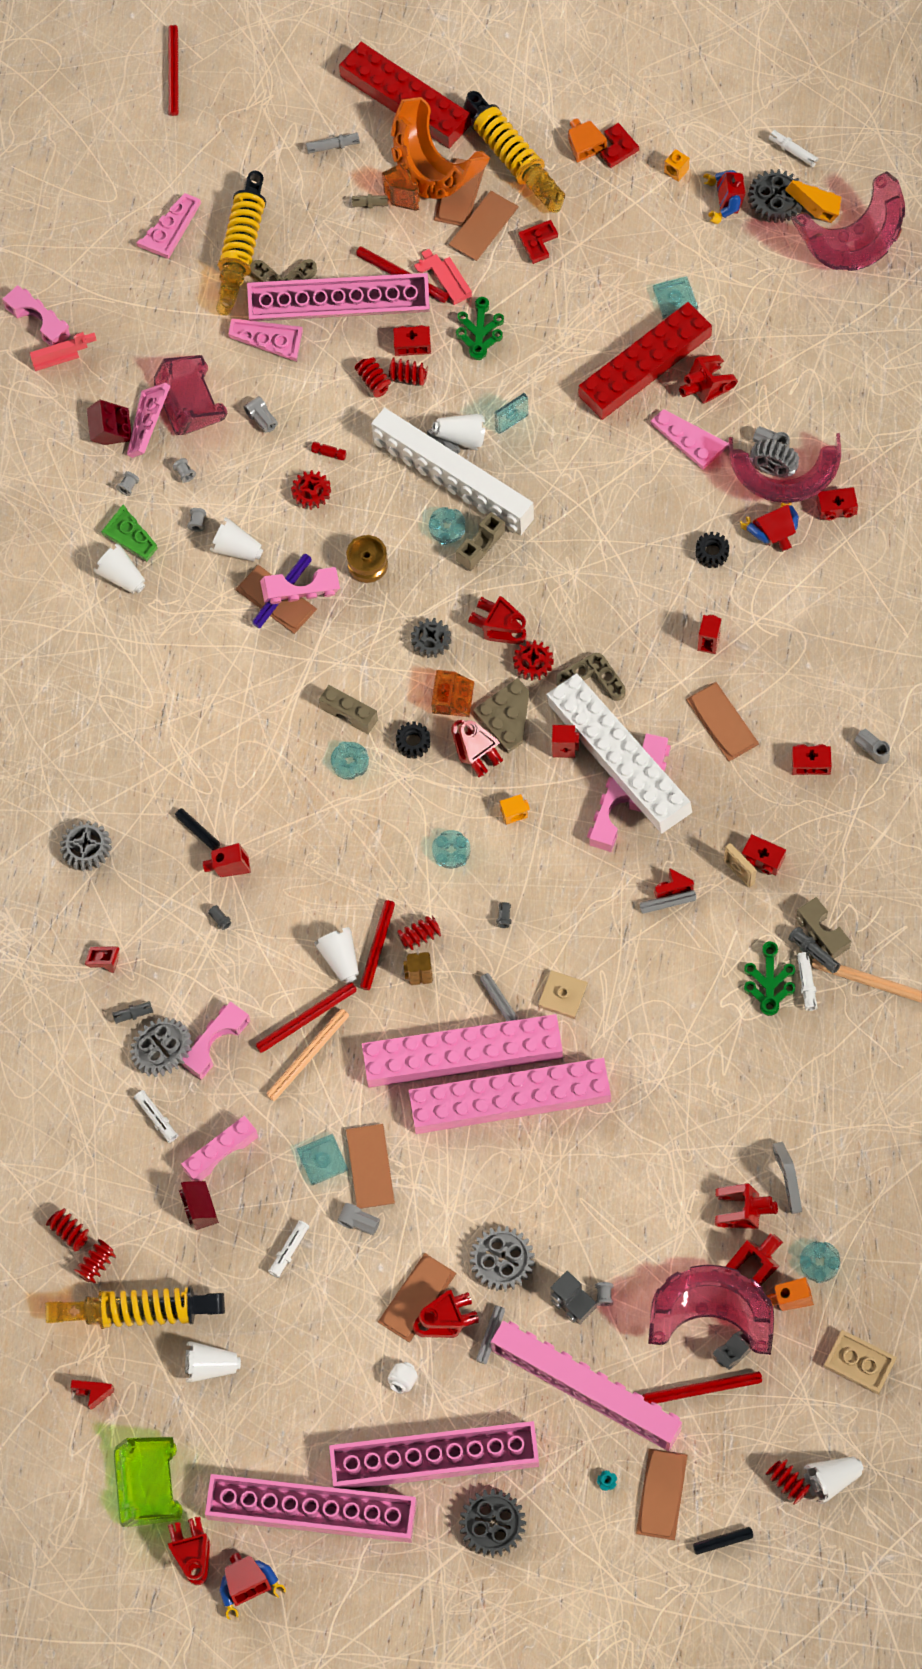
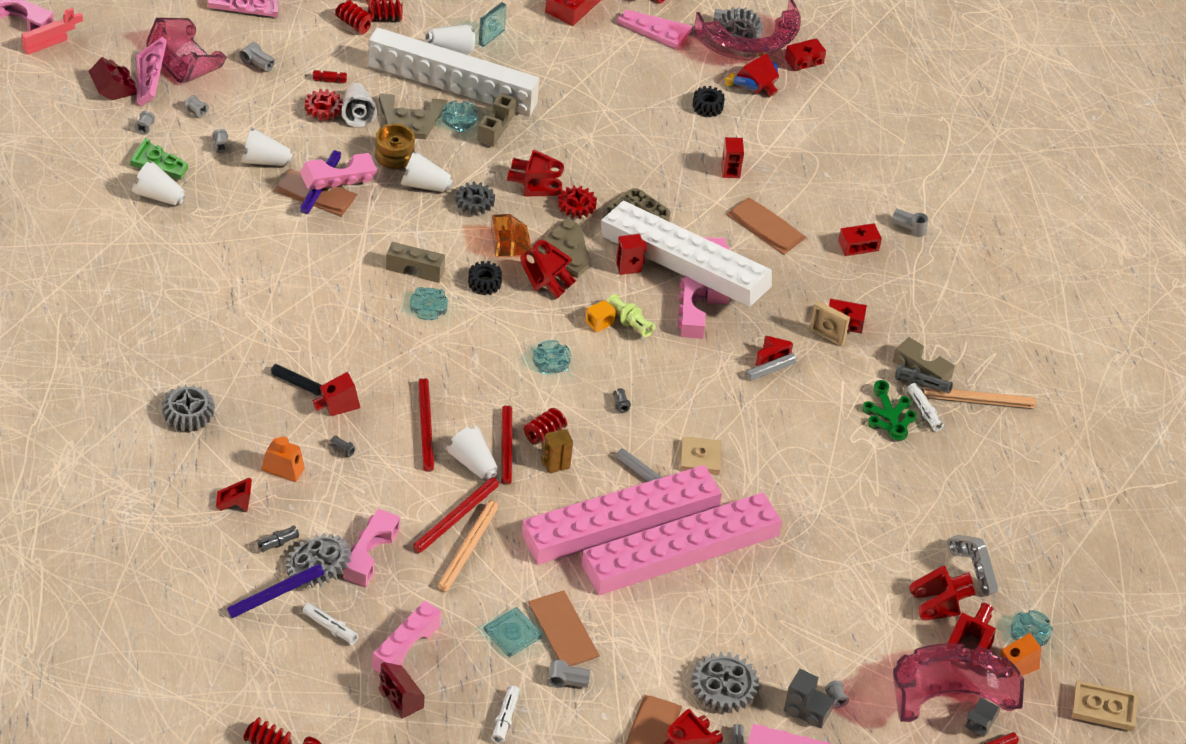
camera: 25 degrees left, 20 degrees down
(113, 1074) = (275, 590): none -> dark purple axle
(156, 924) = (283, 459): none -> orange torso
(306, 906) = (426, 427): none -> red axle
(344, 497) = (358, 106): none -> white cone
(388, 601) = (425, 174): none -> white cone
(393, 524) = (418, 120): none -> dark tan wing
(543, 815) = (631, 315): none -> yellowish green piece

